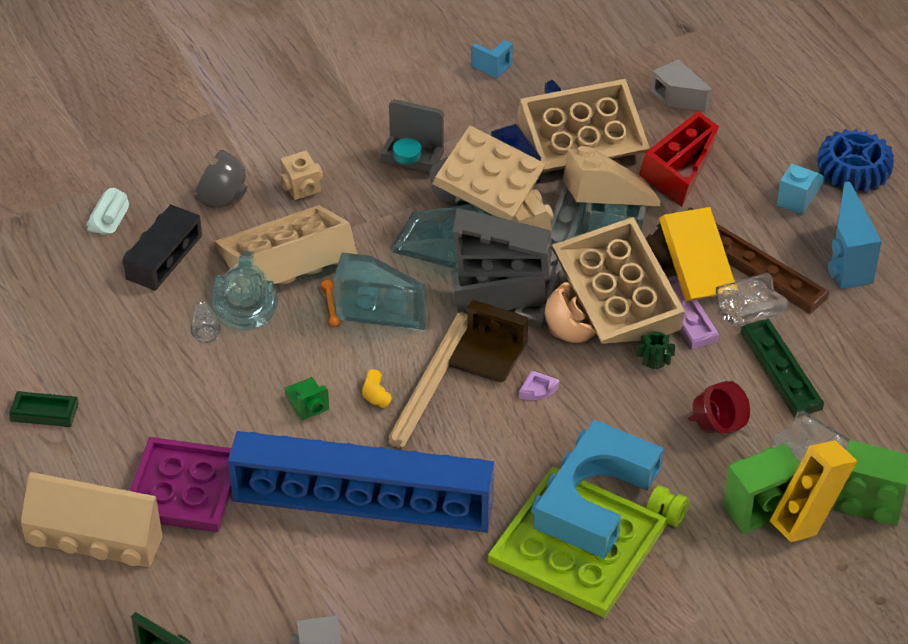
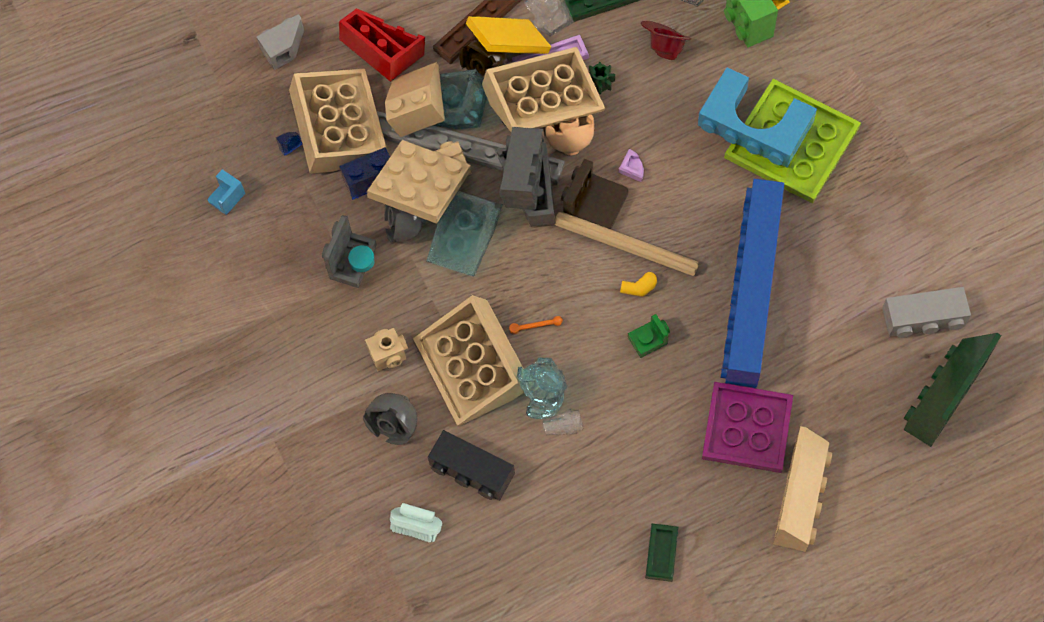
camera: 85 degrees left, 20 degrees up
(378, 293) = (541, 280): clear light blue slope -> none
(668, 505) = (760, 76): lime wheel -> none

